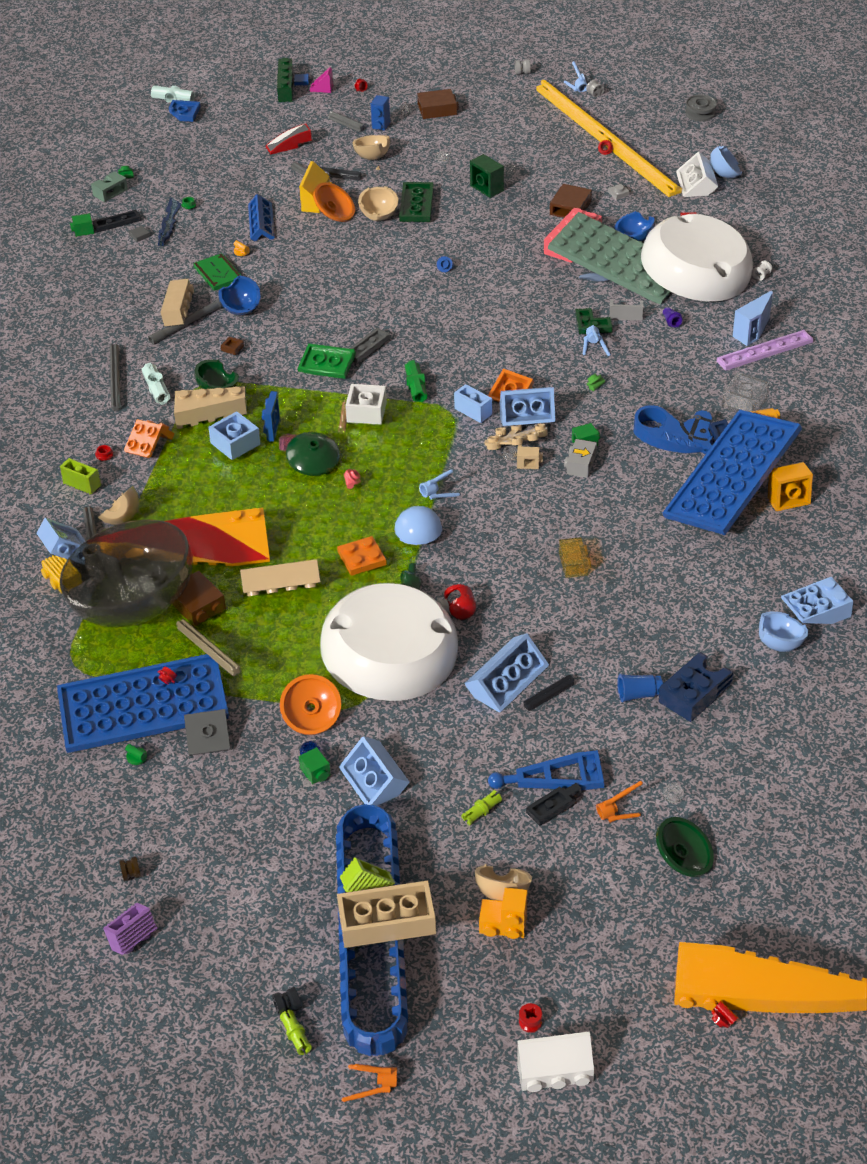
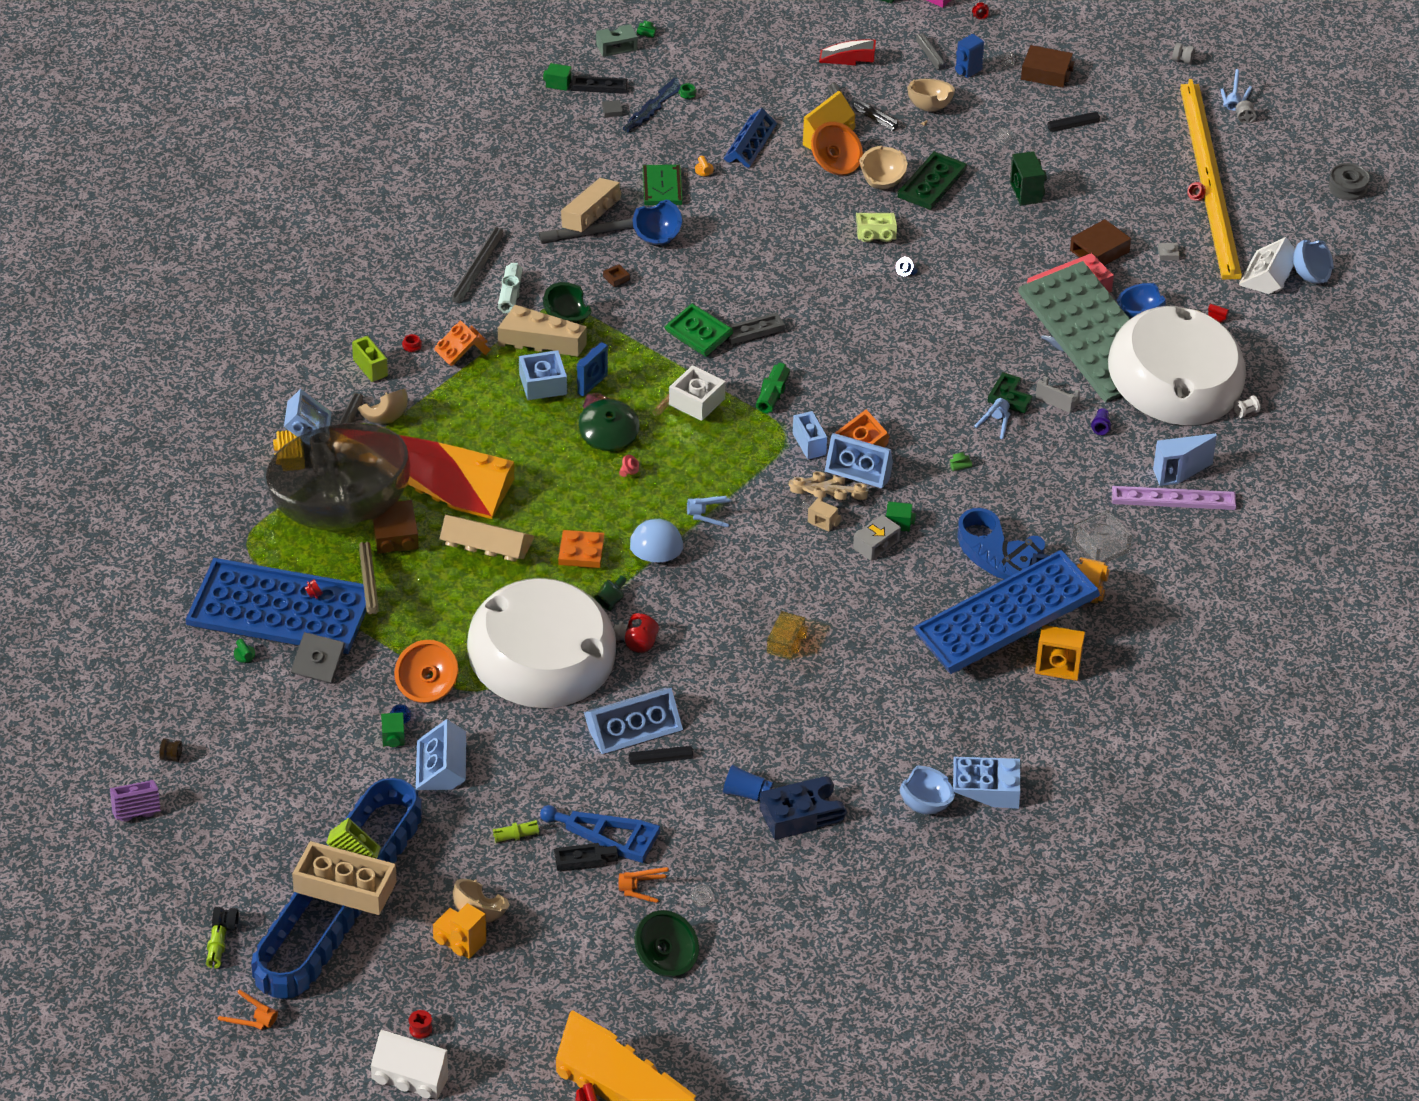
camera: 25 degrees right, 0 degrees up
(402, 244) = (876, 226): none -> yellowish green plate
(483, 132) = (1073, 121): none -> black axle

